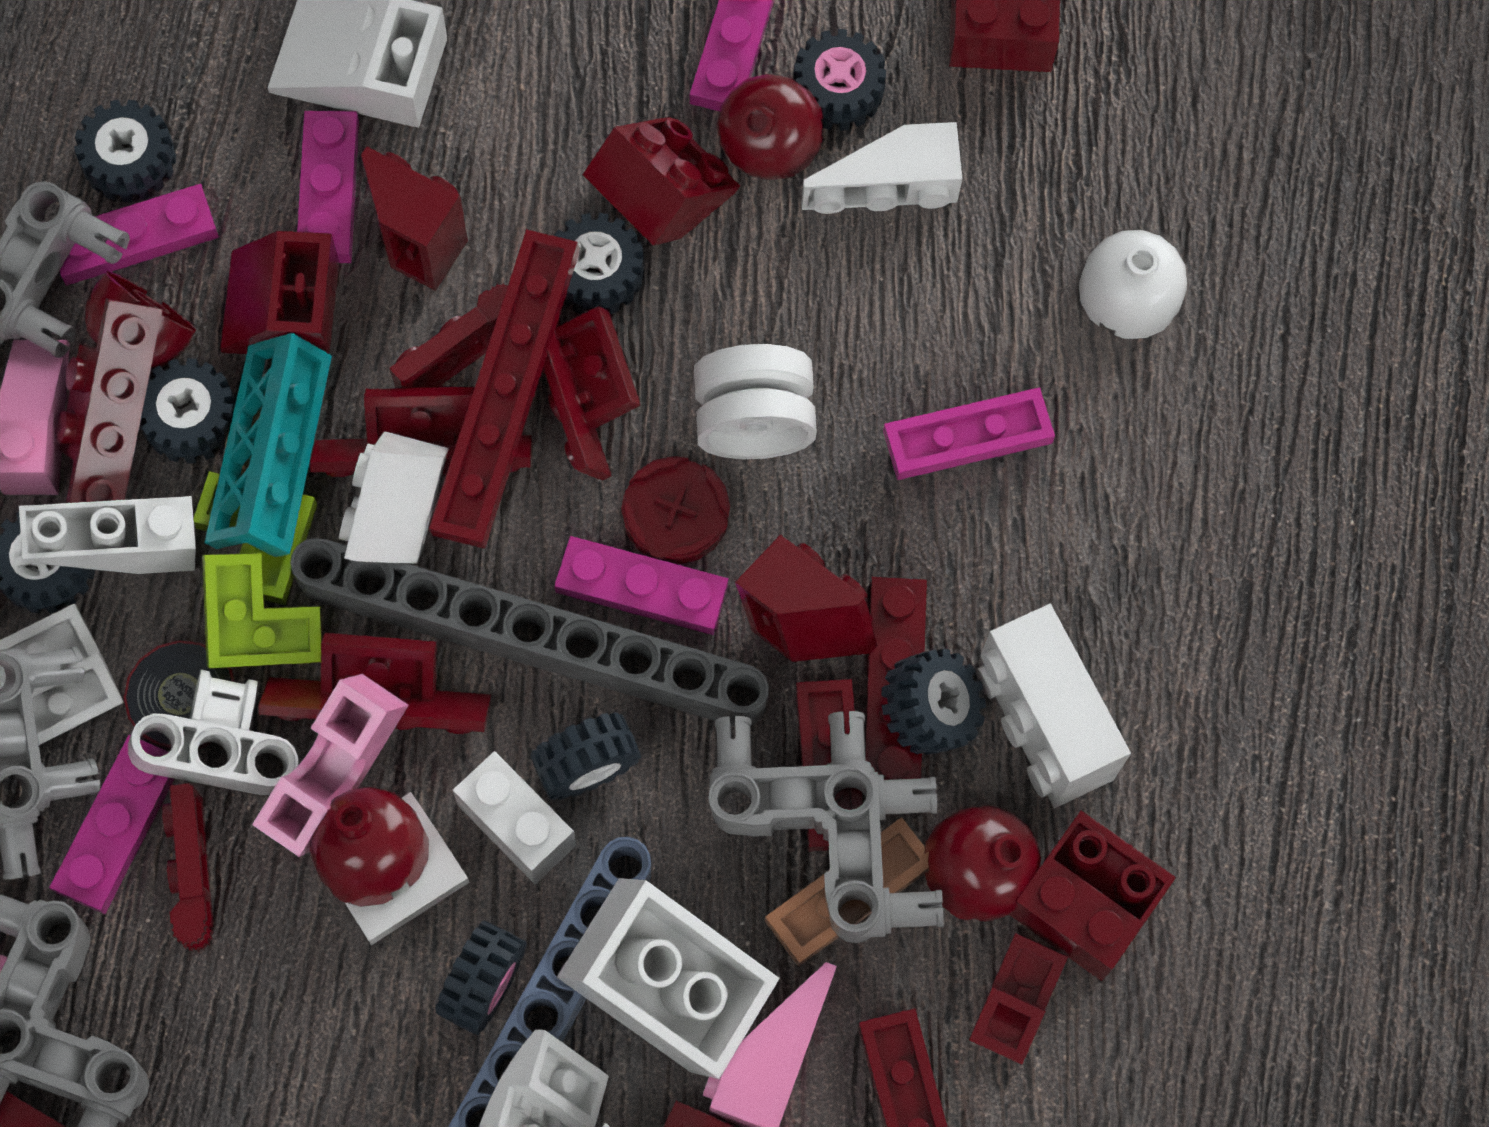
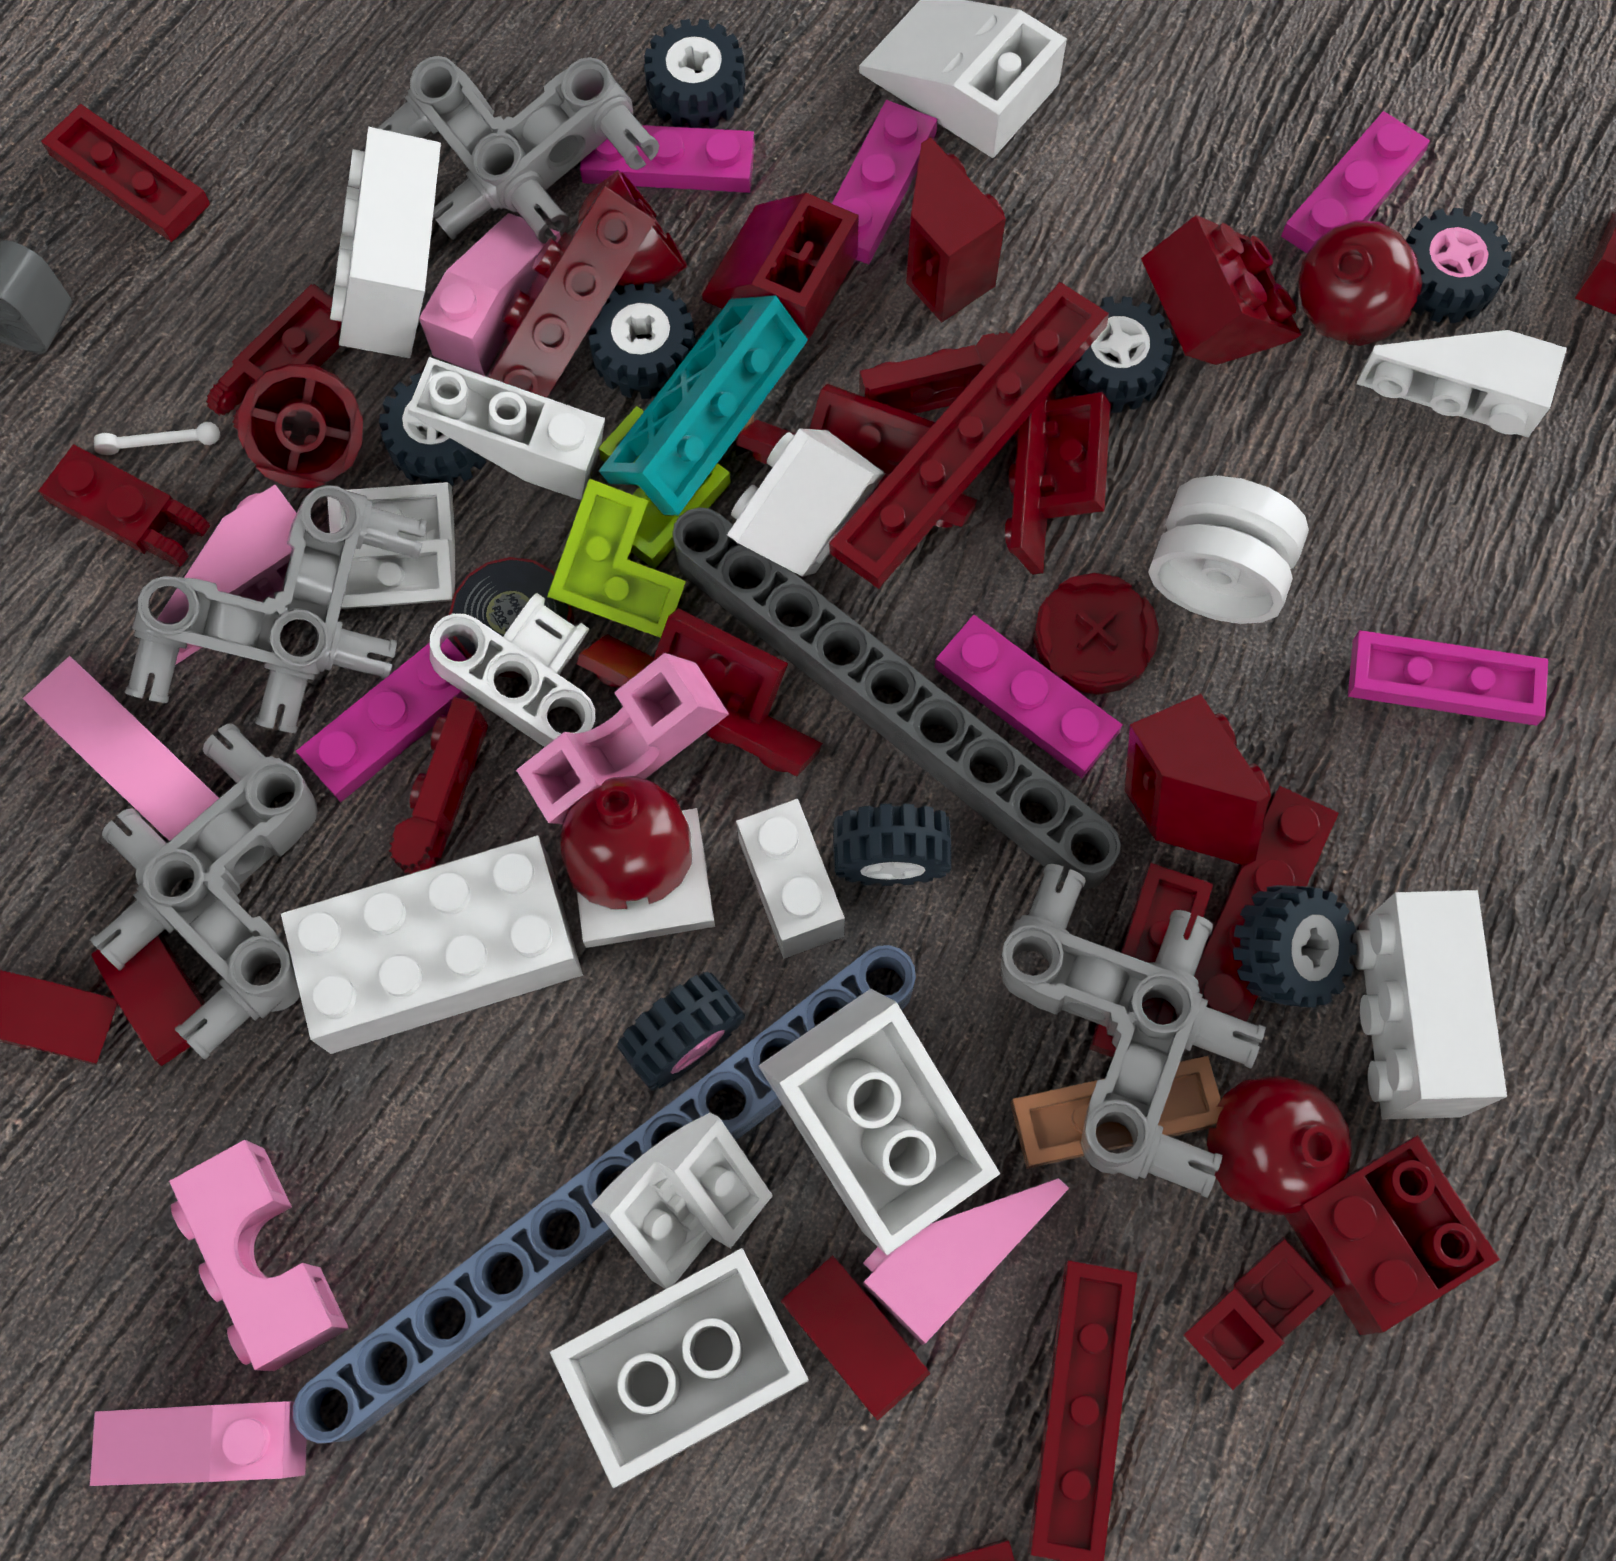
camera: 30 degrees right, 0 degrees up
(243, 998) = (430, 945): none -> white brick

